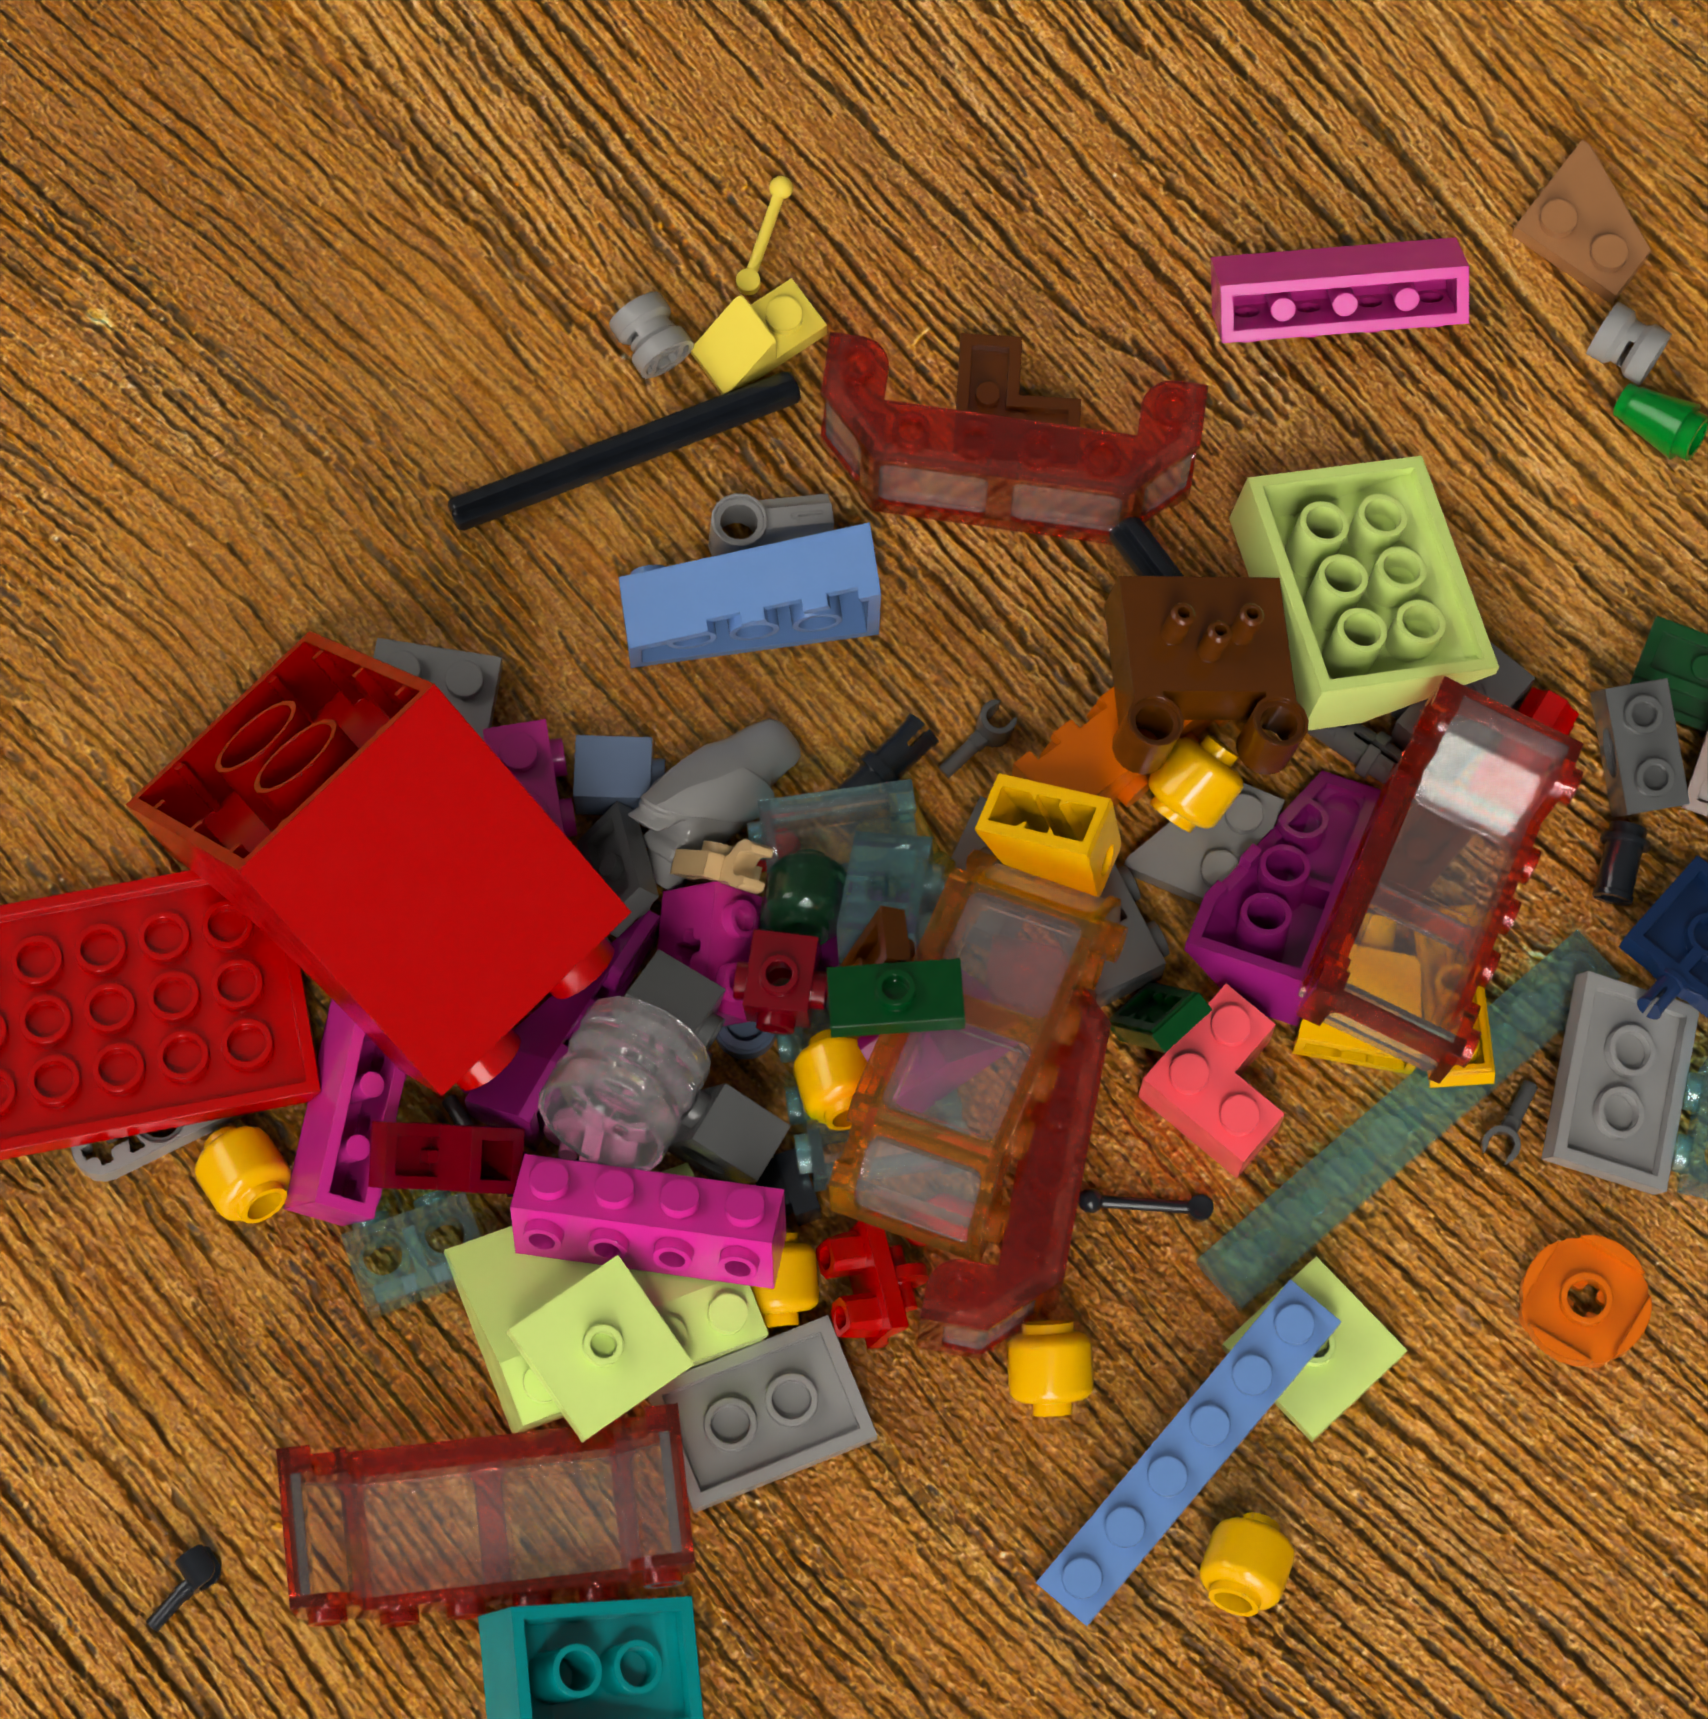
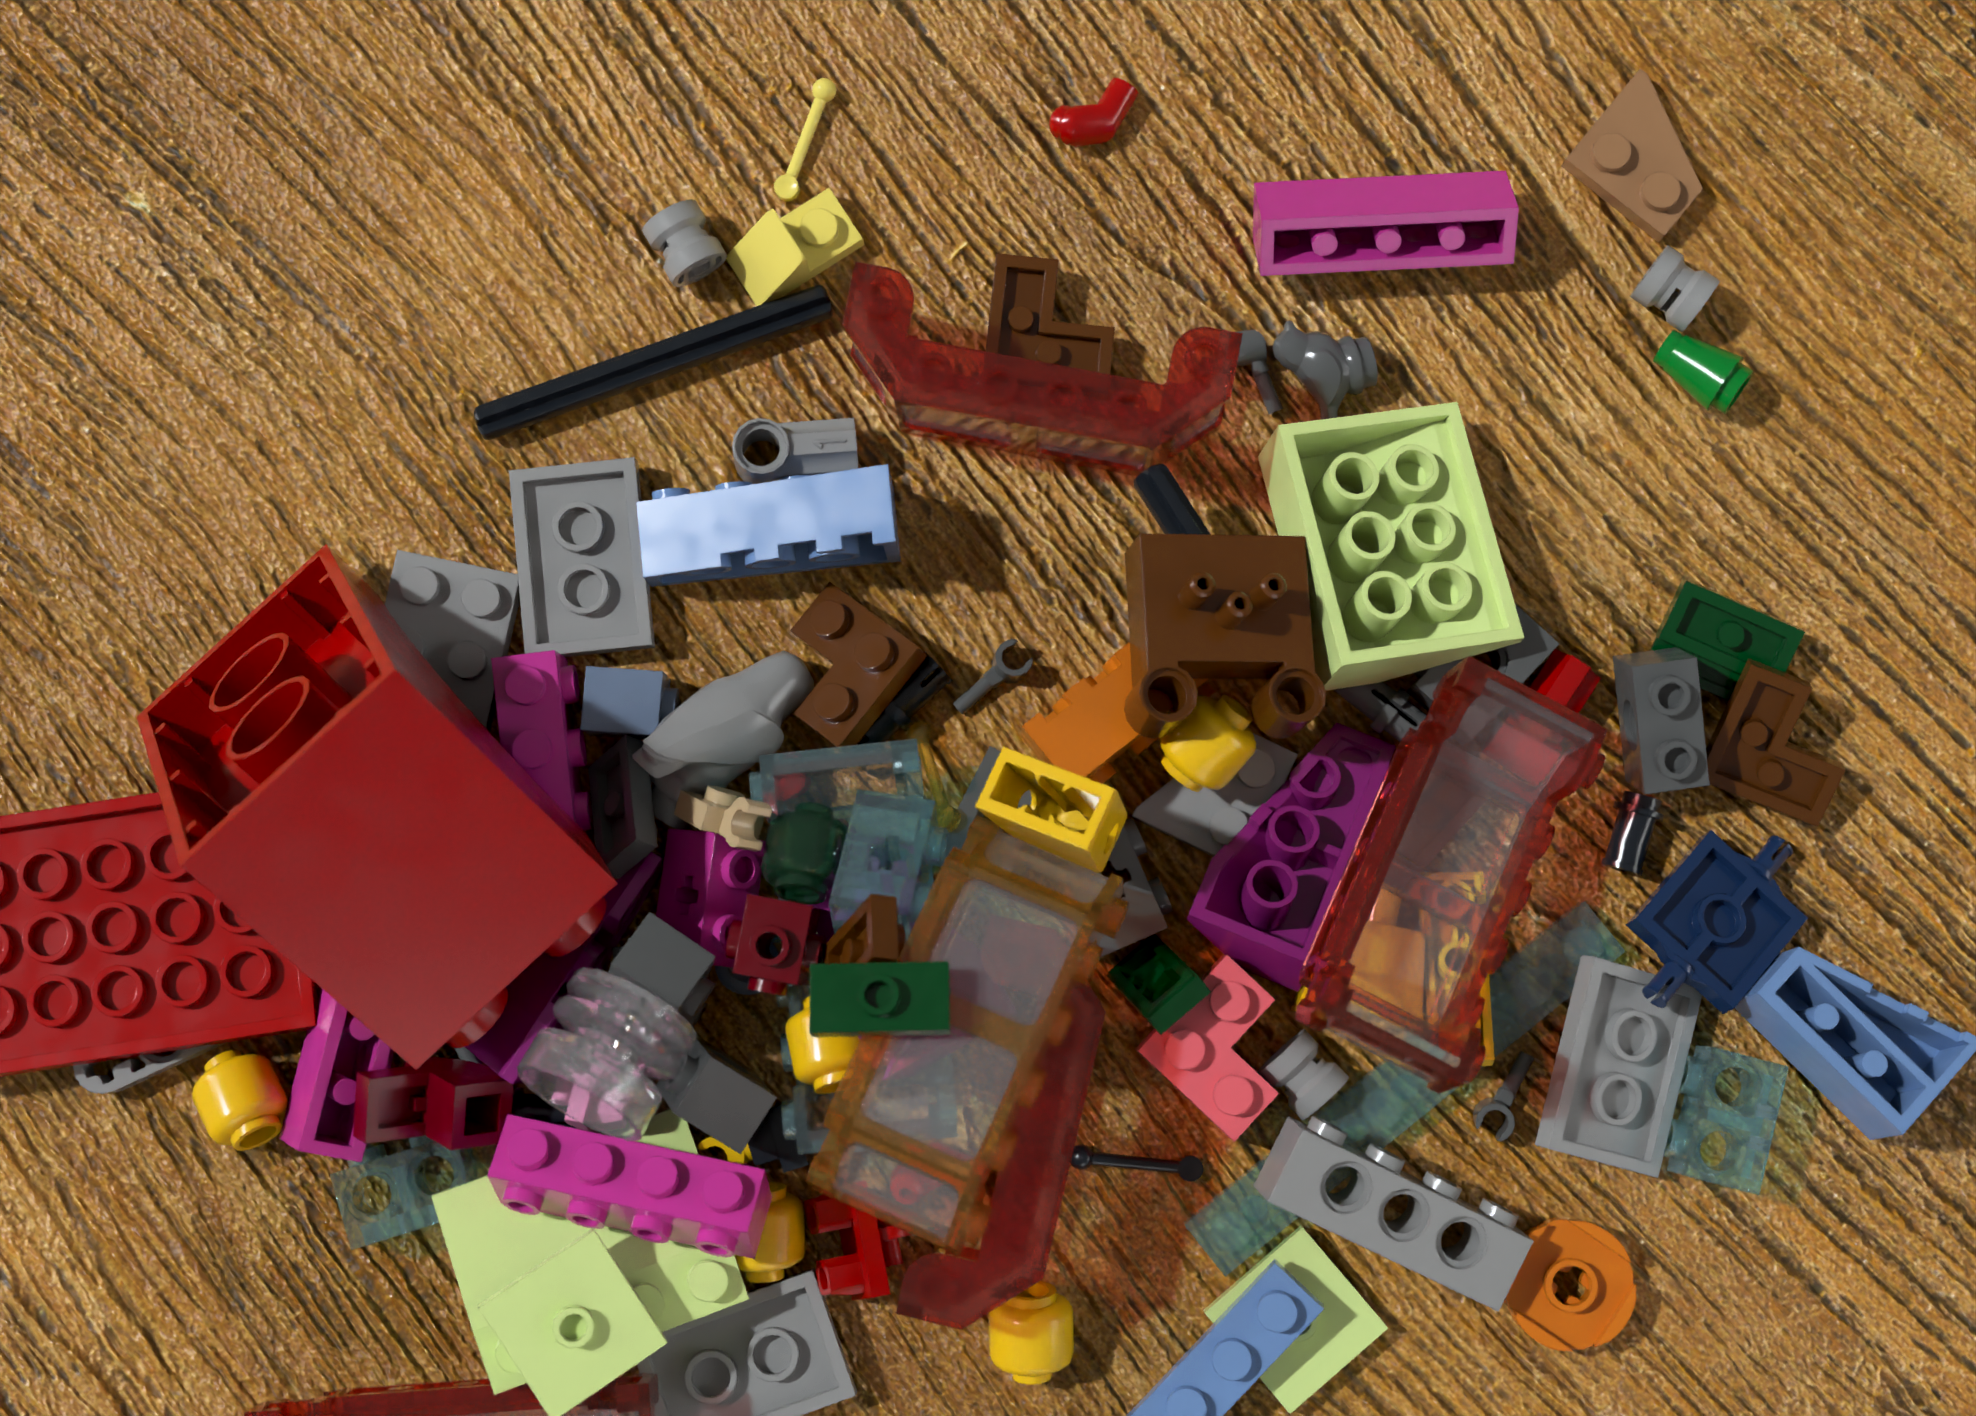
camera: 10 degrees right, 10 degrees up
(563, 637) = (581, 558): none -> light grey plate
(850, 722) = (866, 670): none -> reddish brown plate
(1052, 207) = (1095, 122): none -> red arm
(1219, 419) = (1254, 353): none -> dark grey hand
(1292, 428) = (1327, 365): none -> dark grey animal
(1308, 1201) = (1477, 1266): none -> light grey brick
(1312, 1110) = (1307, 1079): none -> light grey wheel

